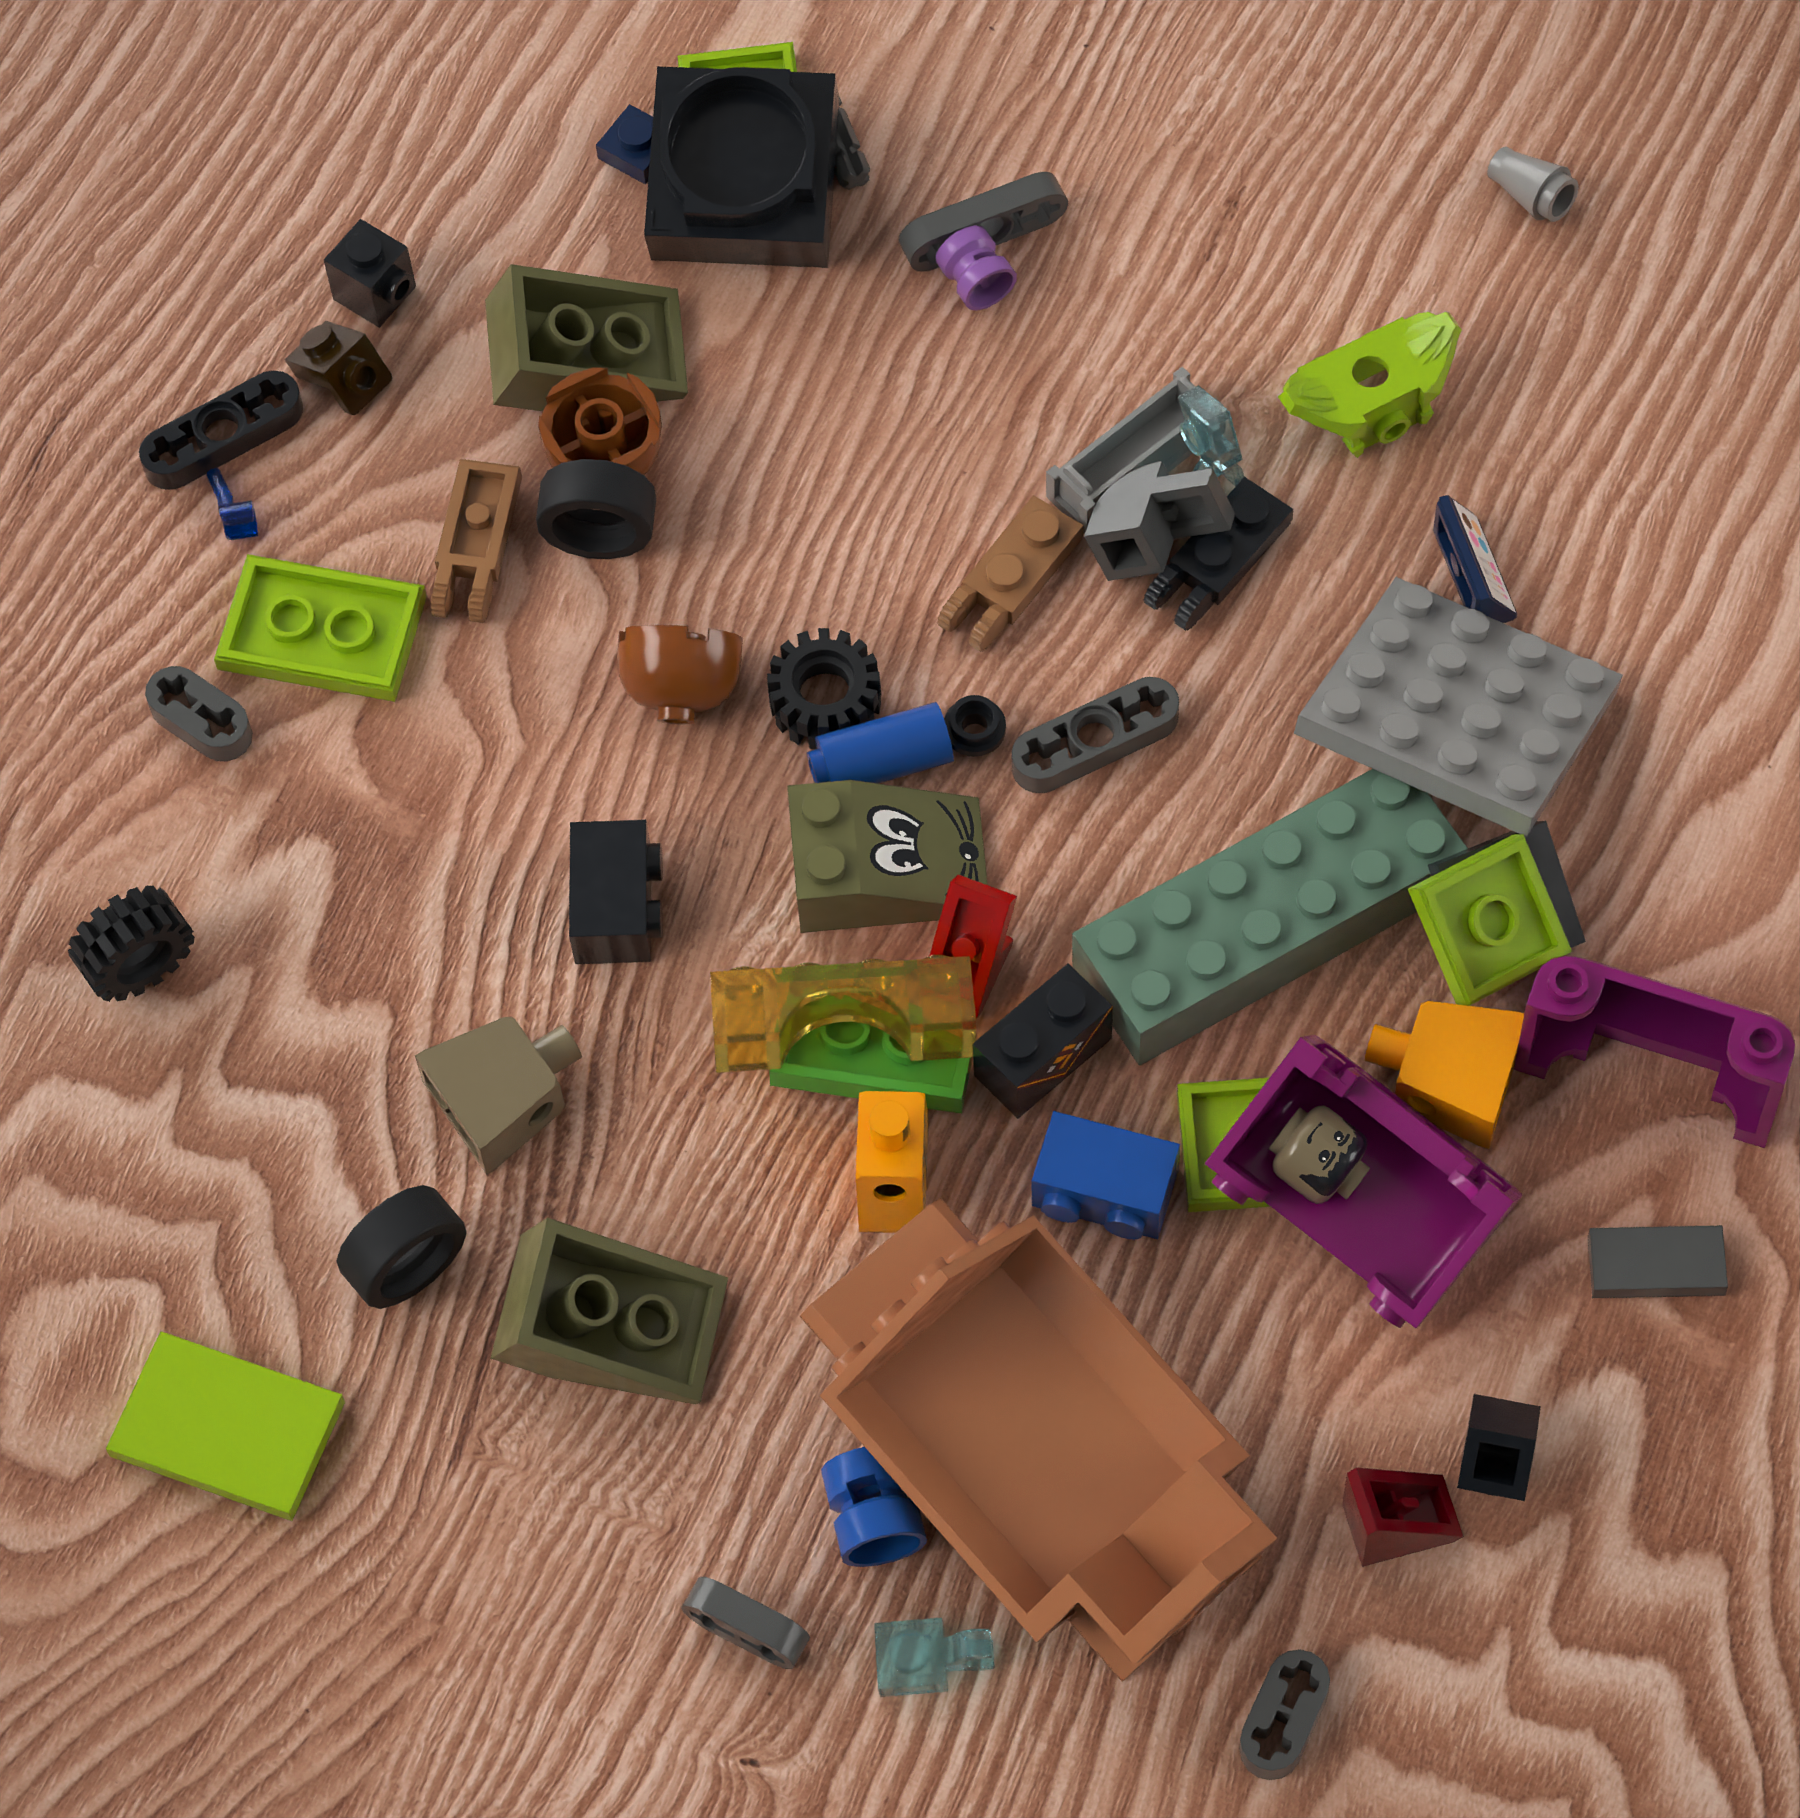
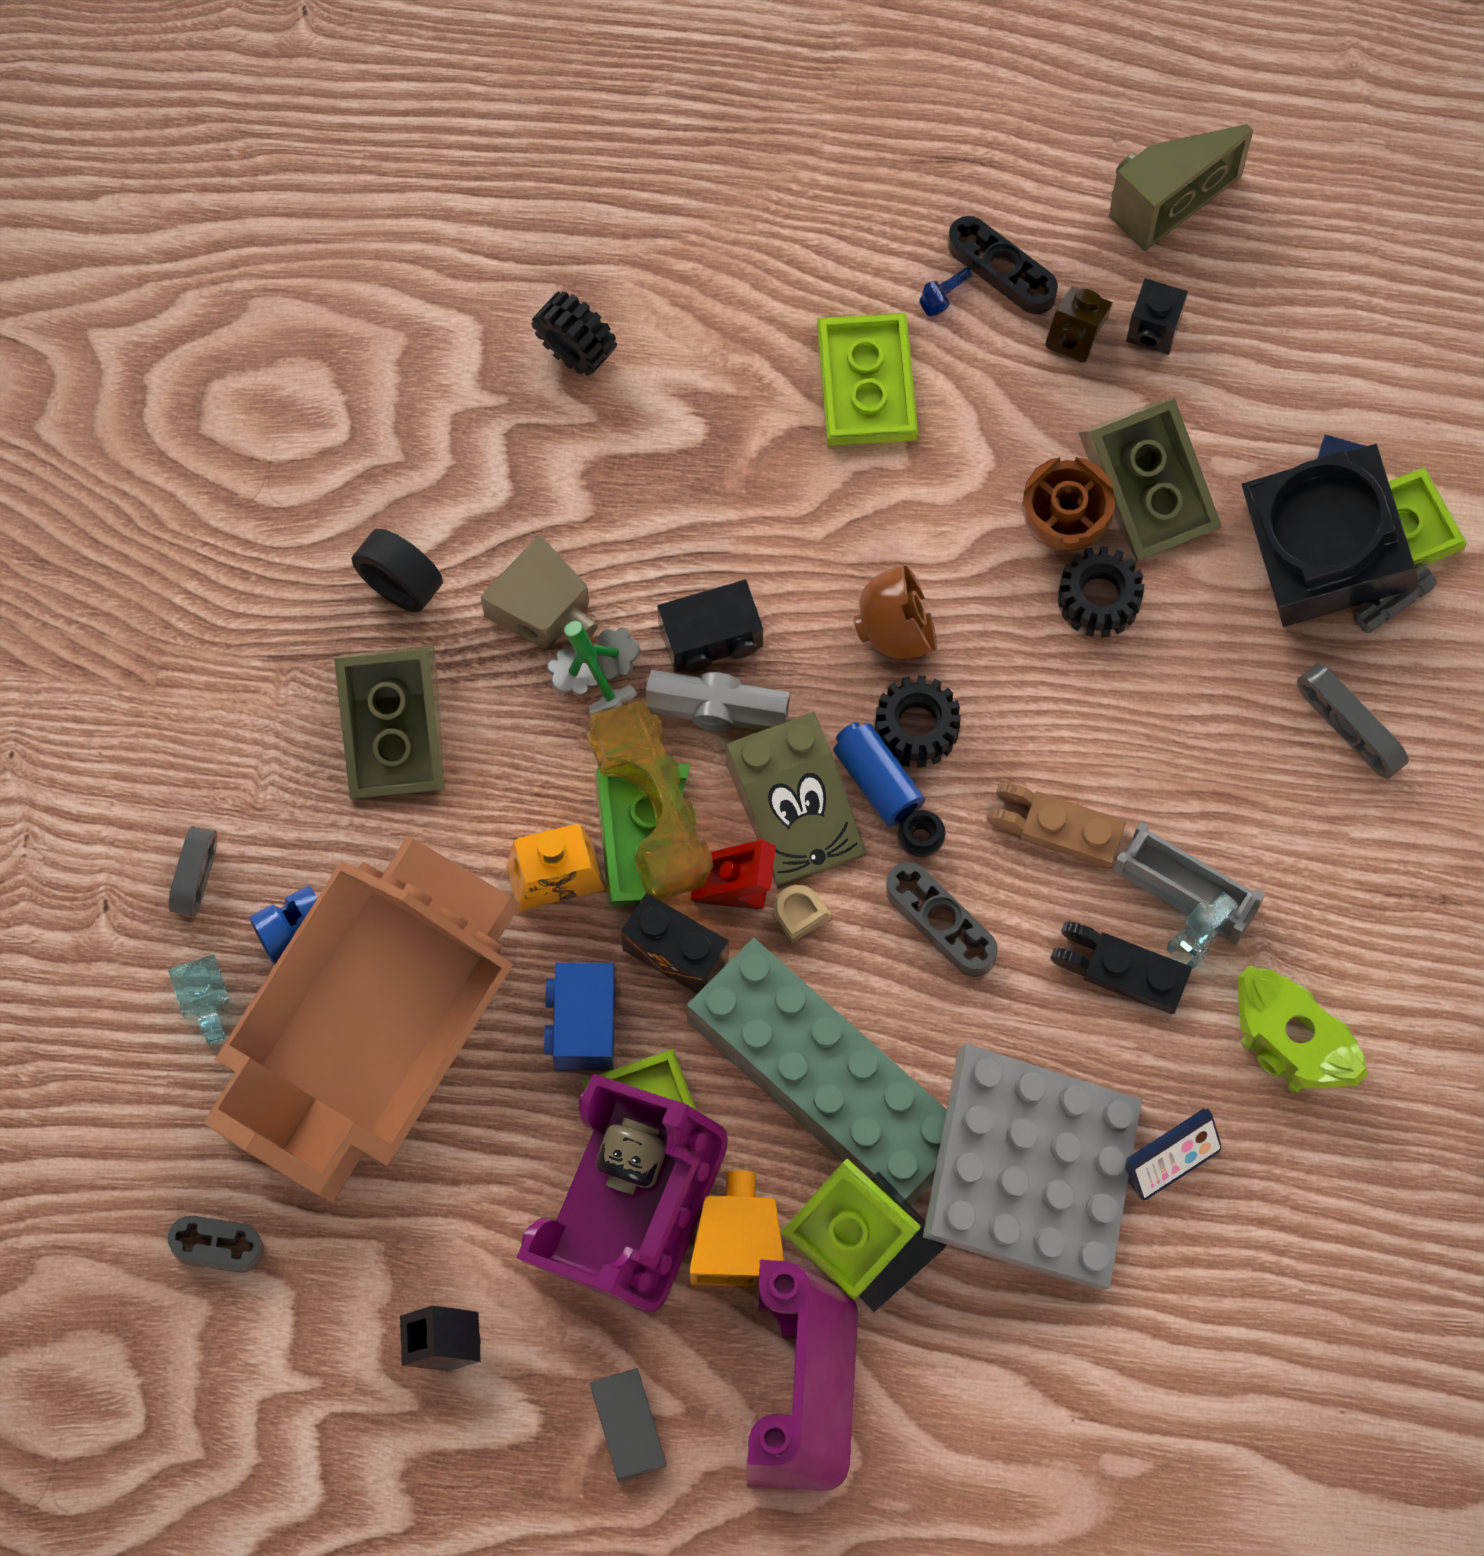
camera: 70 degrees right, 5 degrees up
(192, 723) = (782, 326): dark grey beam -> none
(201, 210) = (1175, 180): none -> olive slope
(225, 1425) = (256, 509): lime tile -> none
(475, 534) = (967, 453): medium nougat hinge -> none
(609, 1023) = (580, 669): none -> light grey plant
(619, 492) = (1004, 521): black tyre -> none
(714, 411) = (1100, 567): none -> black tyre
(719, 911) = (716, 701): none -> light grey piece
(979, 272) = (1308, 726): medium lavender wheel -> none
(1038, 892) = (799, 911): none -> tan tile
(1149, 509) = (1125, 900): dark grey brick -> none
(1398, 1513) = (378, 1282): dark red slope -> none

